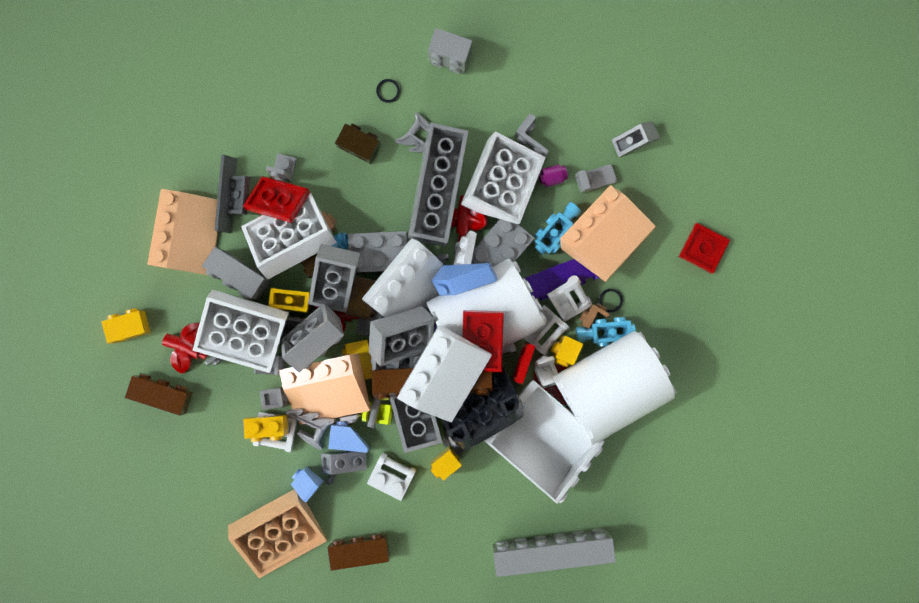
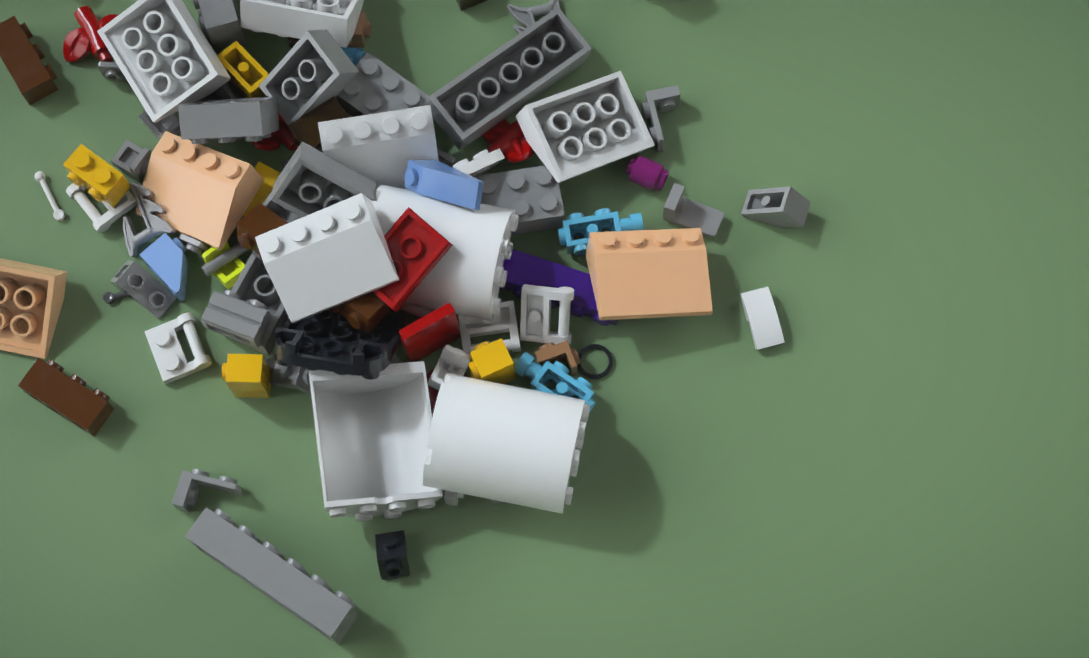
camera: 45 degrees right, 15 degrees down
(260, 459) = (58, 214): none -> white hinge
(306, 483) = (82, 275): light blue slope -> none
(417, 442) = (236, 318): none -> light grey brick
(468, 546) = (187, 490): none -> light grey bracket
(597, 487) = (392, 555): none -> black bracket
(678, 205) = (762, 318): none -> white slope
(704, 248) = (753, 390): red tile -> none

